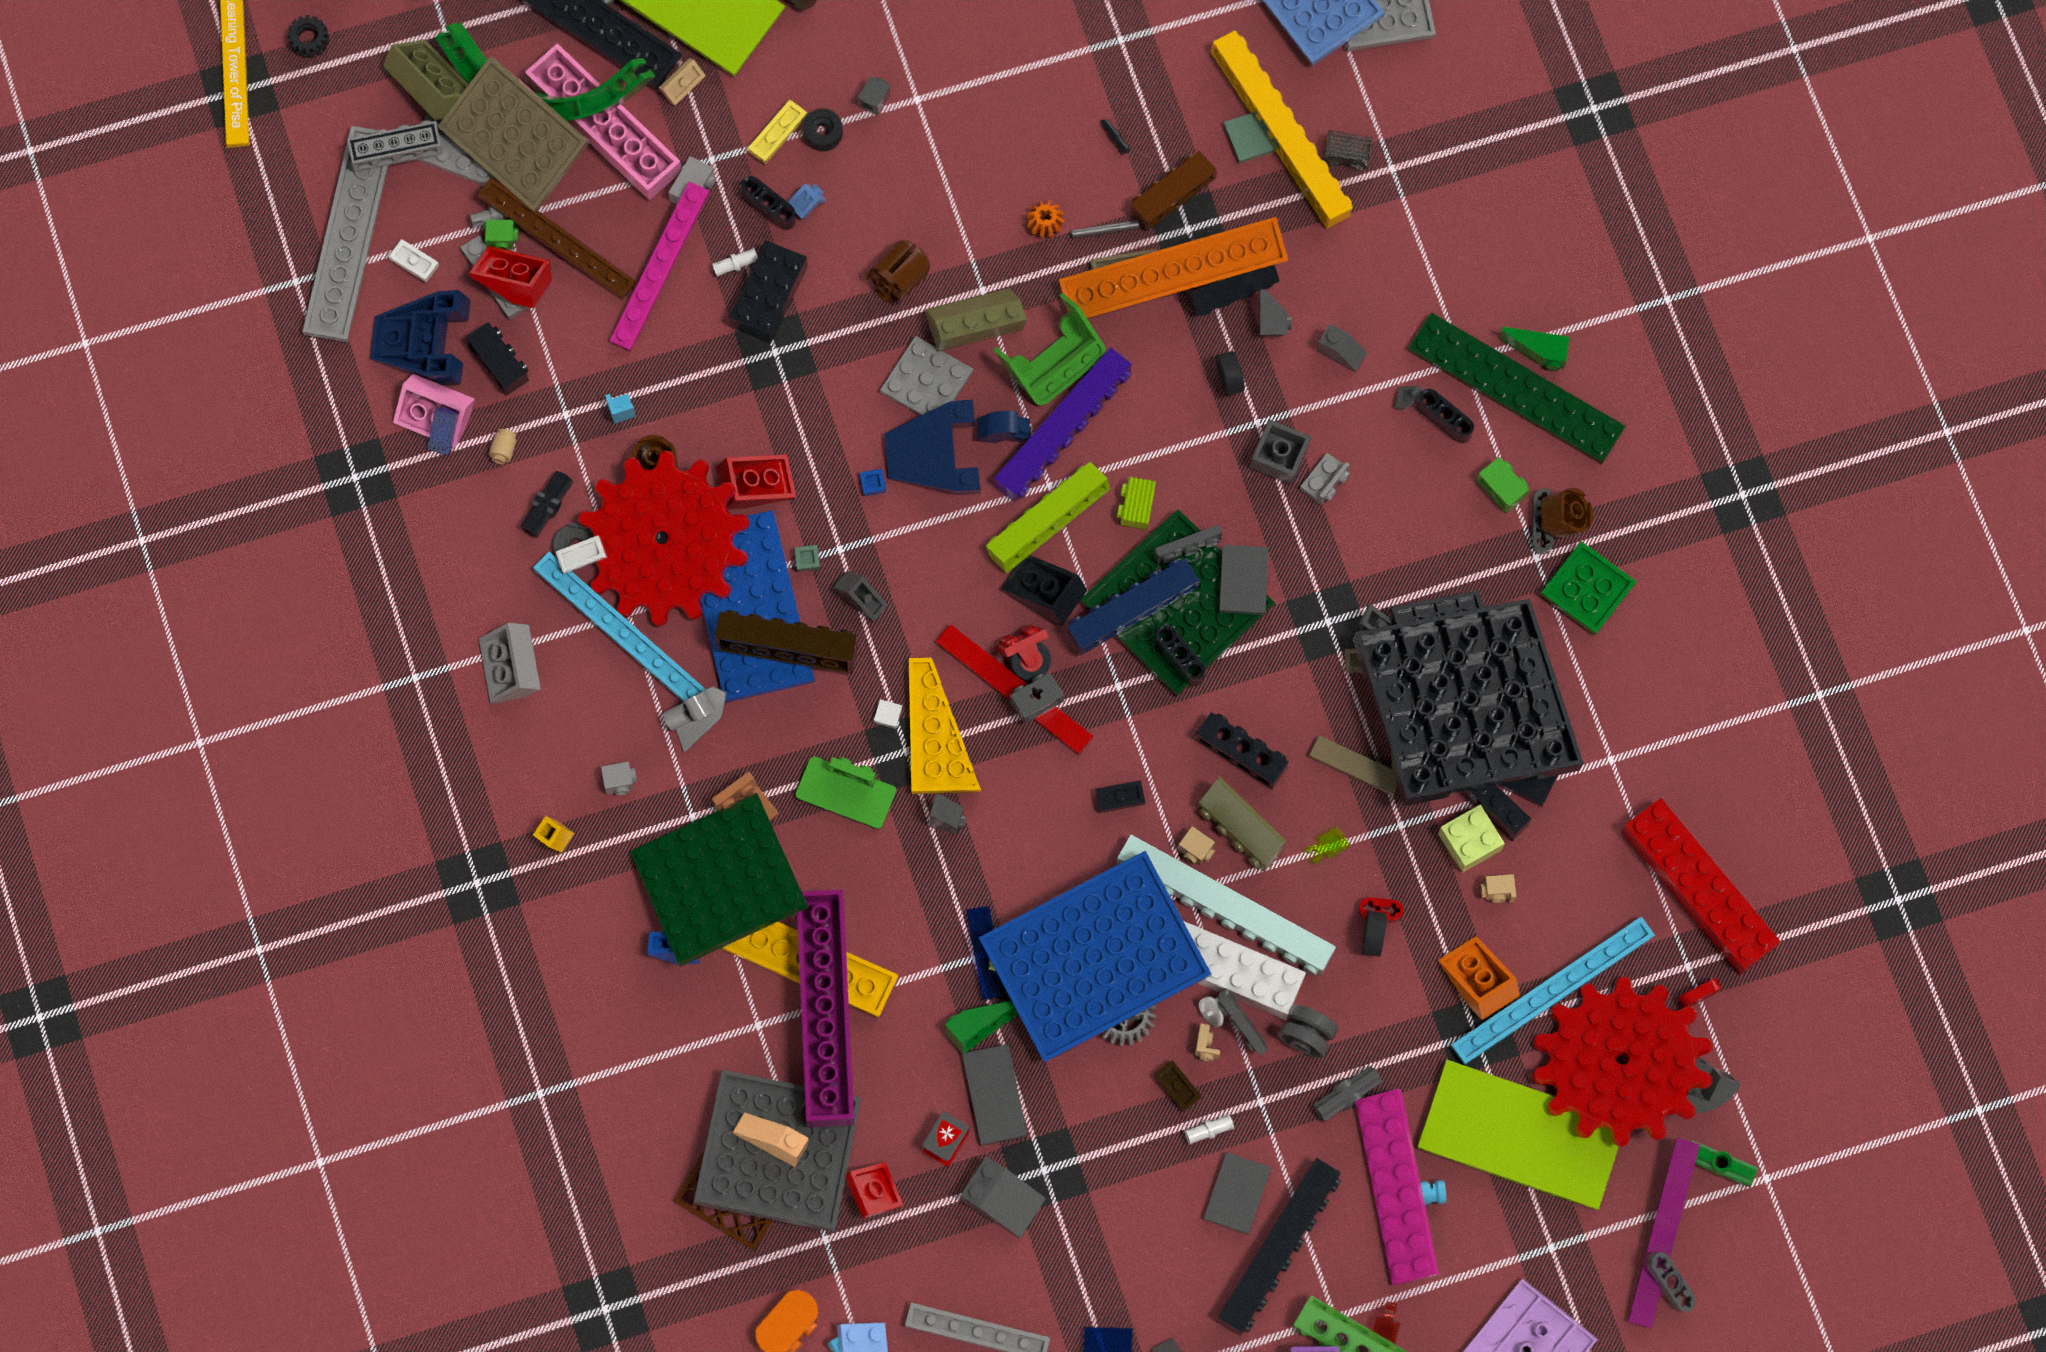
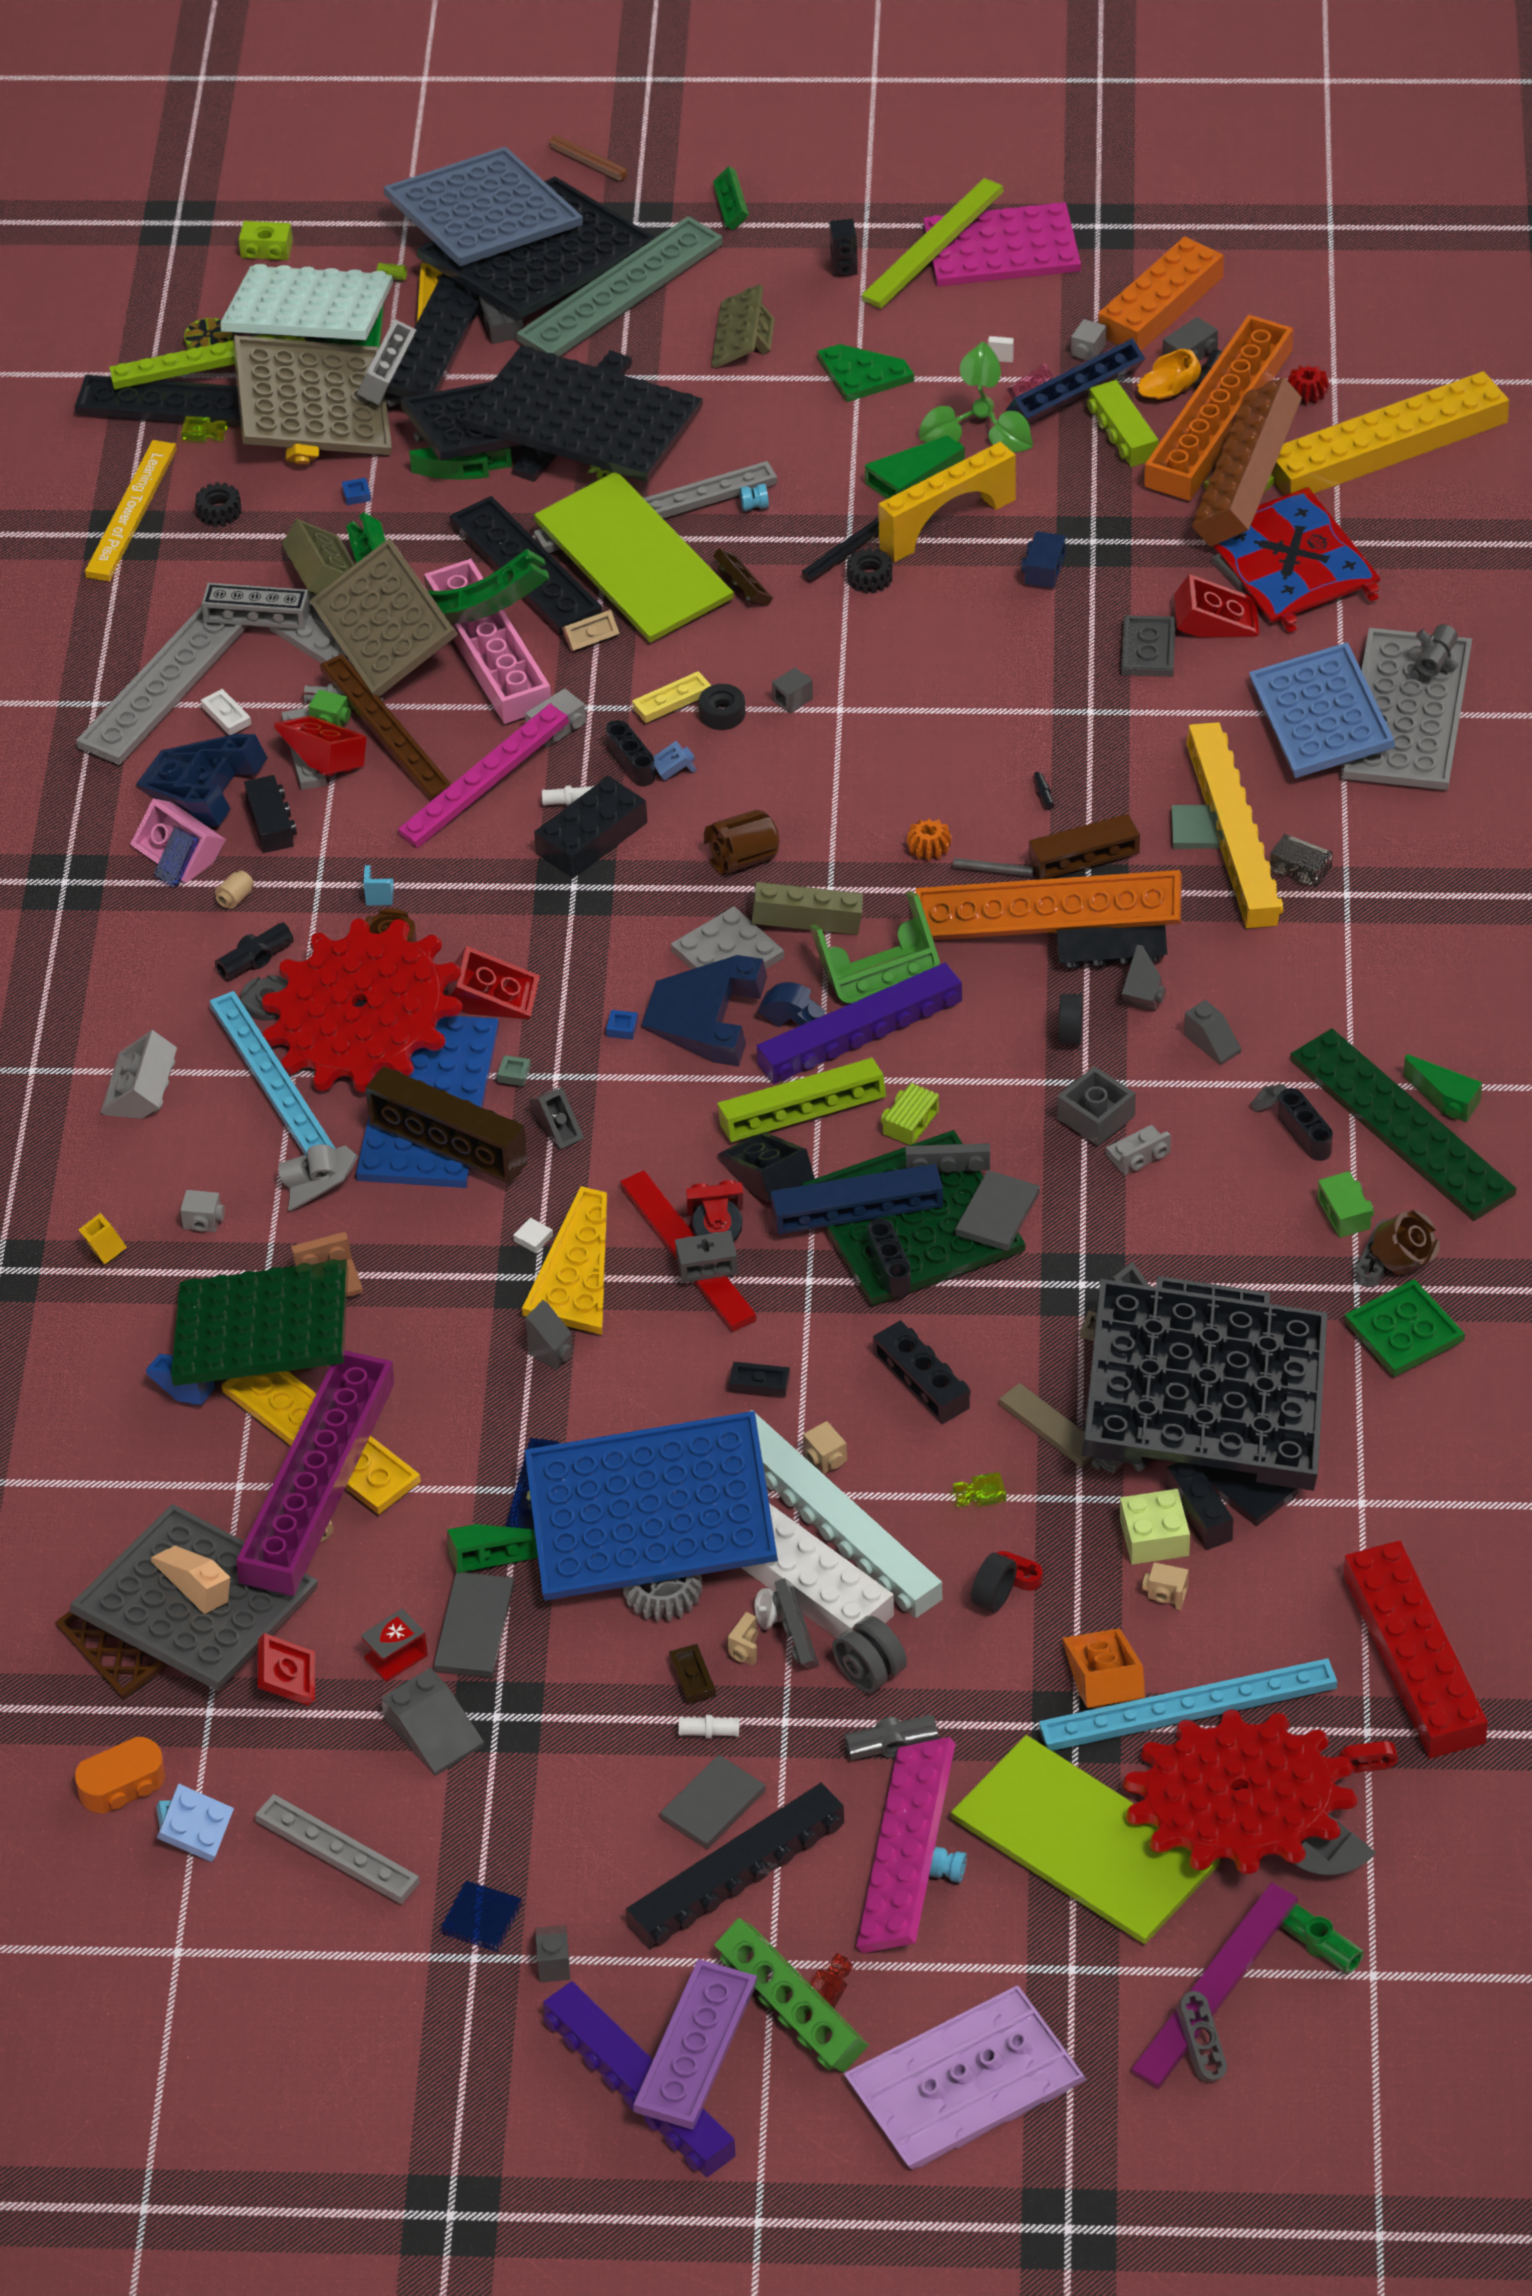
camera: 25 degrees right, 25 degrees down
(581, 554) = (265, 997): white tile -> none
(846, 790) = (451, 1289): bright green bracket -> none
(1242, 825) = (886, 1437): olive slope -> none

